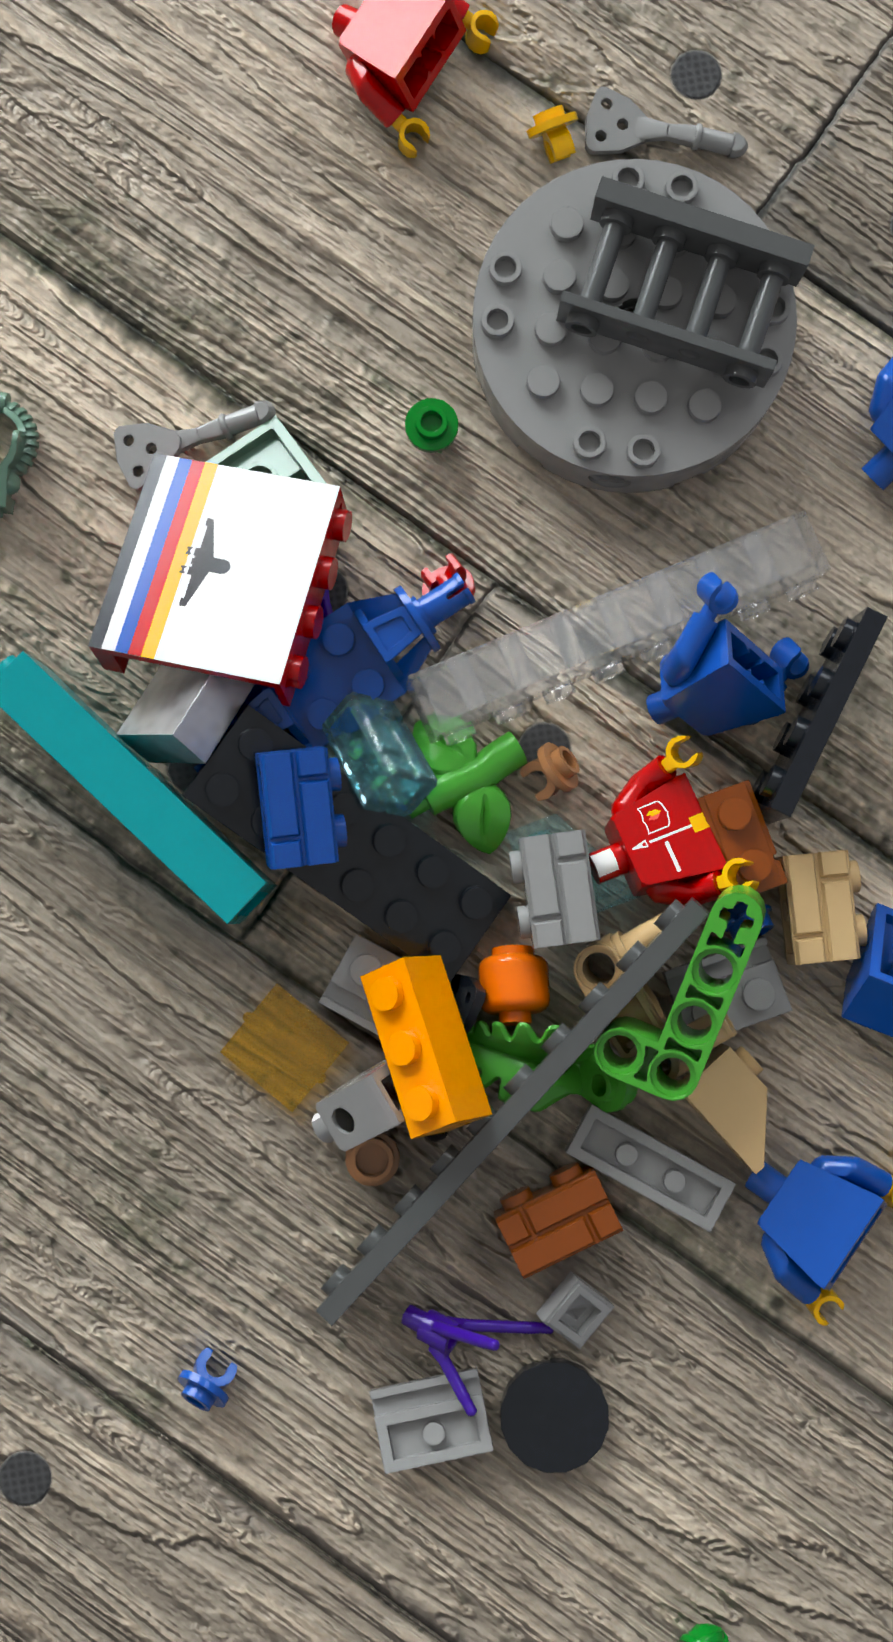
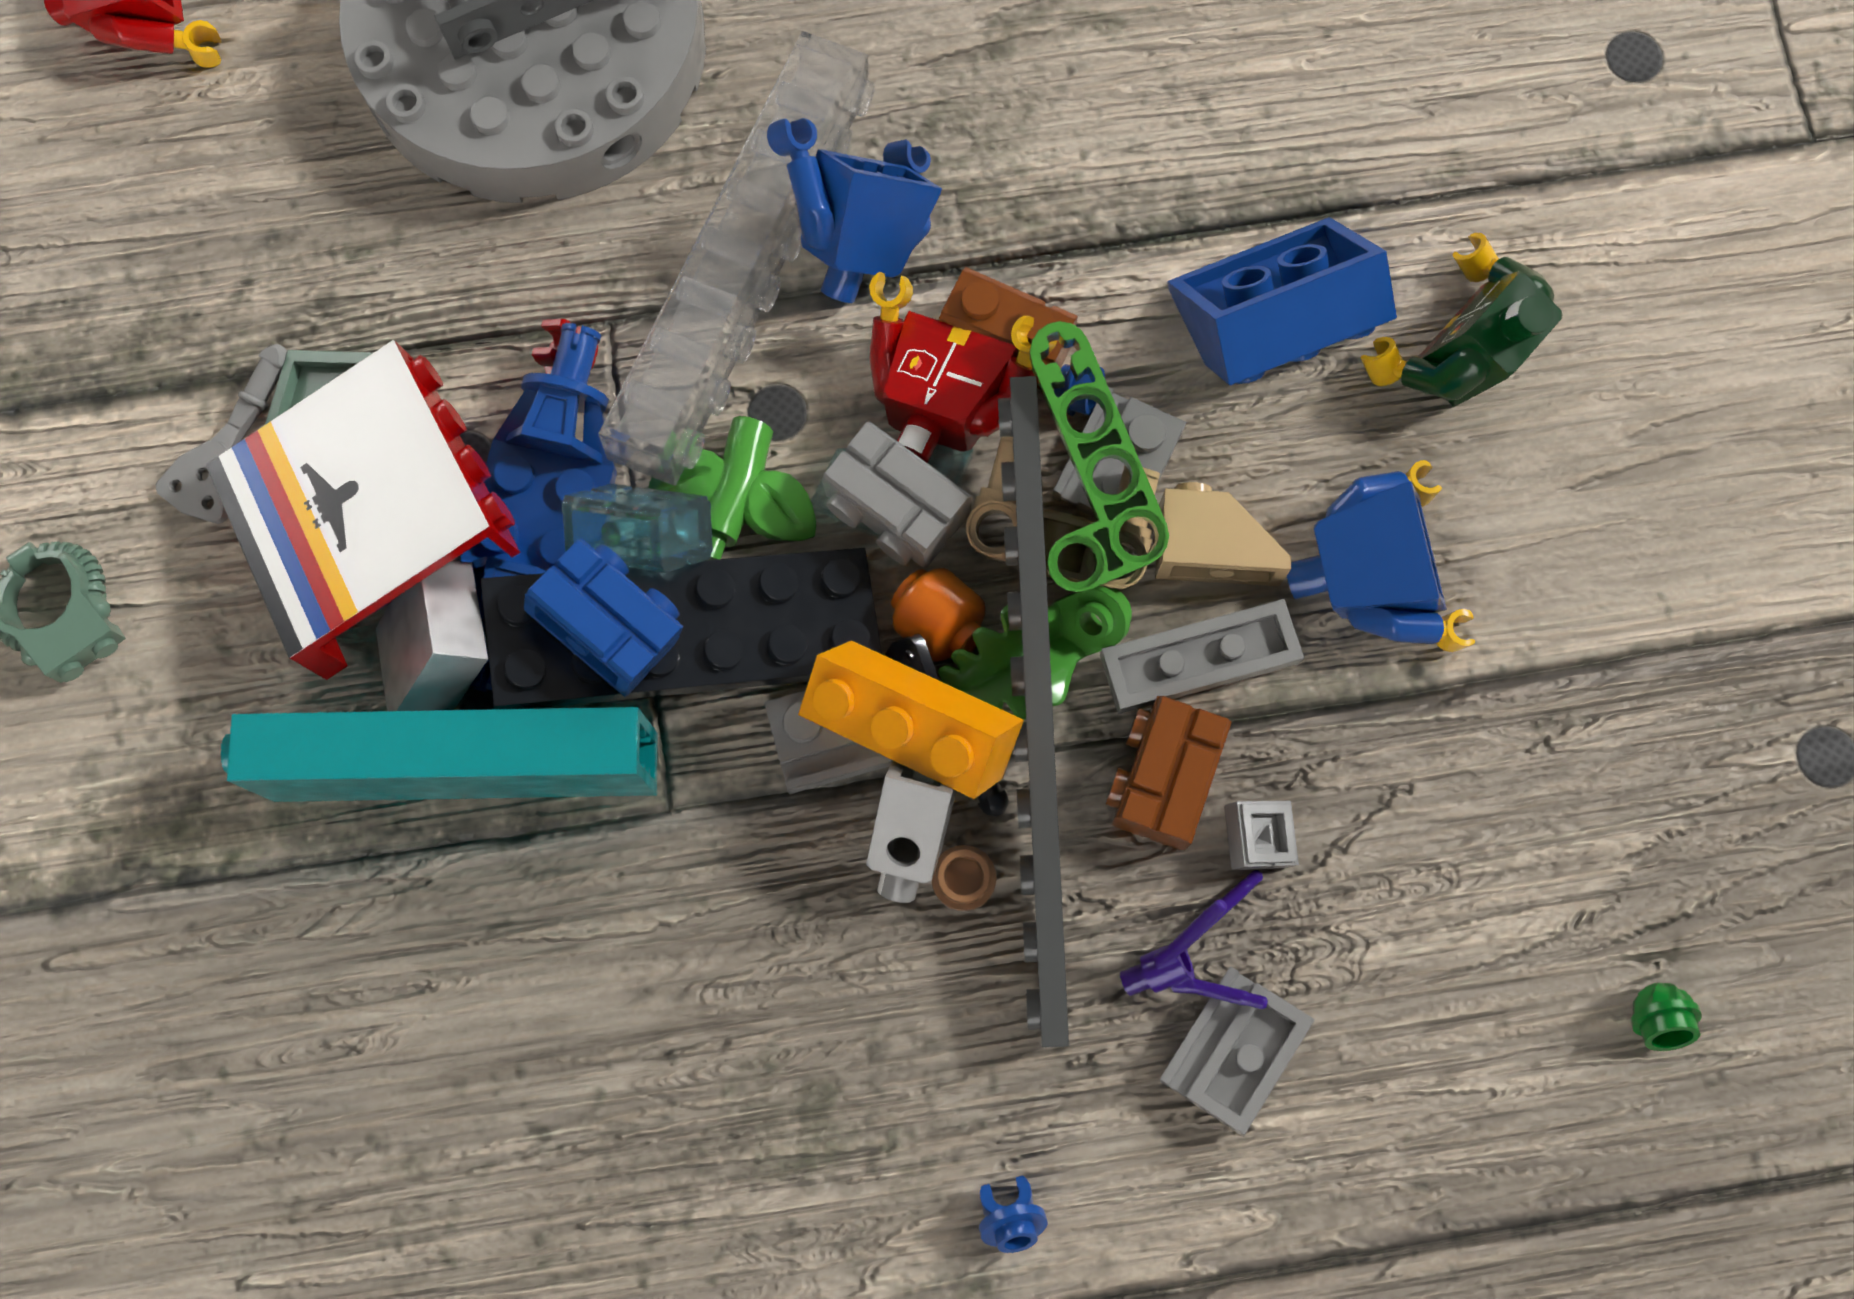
camera: 40 degrees left, 10 degrees down
(284, 1047) = (796, 860): clear yellow piece -> none
(431, 425) = (431, 240): green plate -> none
(554, 1415) = (1335, 944): black tile -> none
(558, 766) = (800, 409): medium nougat plate -> none
(820, 908) = (1127, 321): tan brick -> none
(822, 703) = (967, 165): black plate -> none

